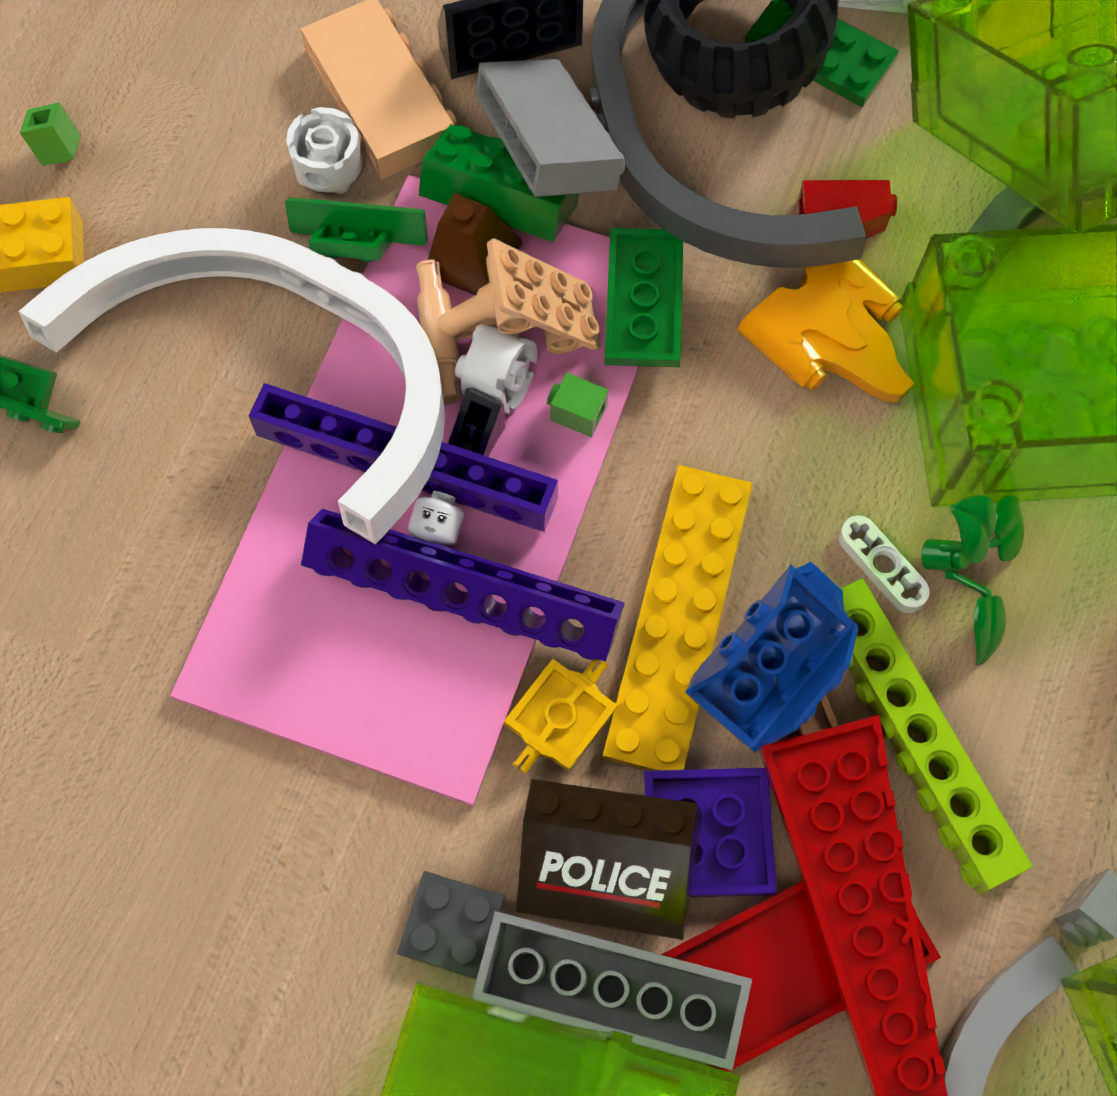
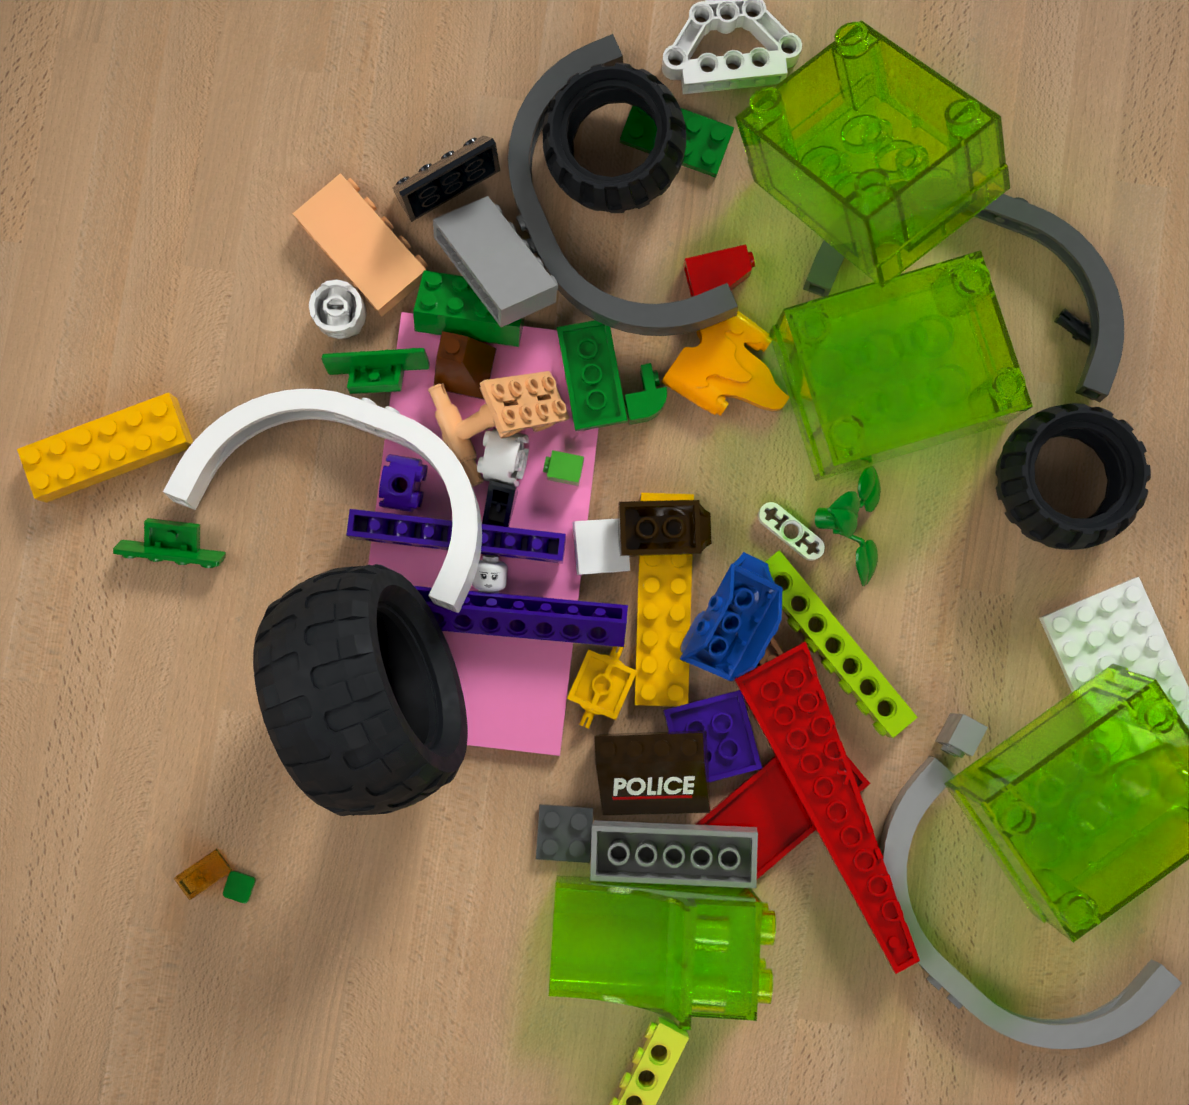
camera: 15 degrees left, 15 degrees up
(50, 134) = (135, 341): bright green brick -> none
(191, 597) = (360, 691): none -> black tyre
(346, 370) = (394, 496): none -> dark purple brick
(605, 522) = (598, 547): none -> white tile
(699, 510) = (663, 528): none -> dark brown slope
(712, 351) = (649, 403): none -> green brick

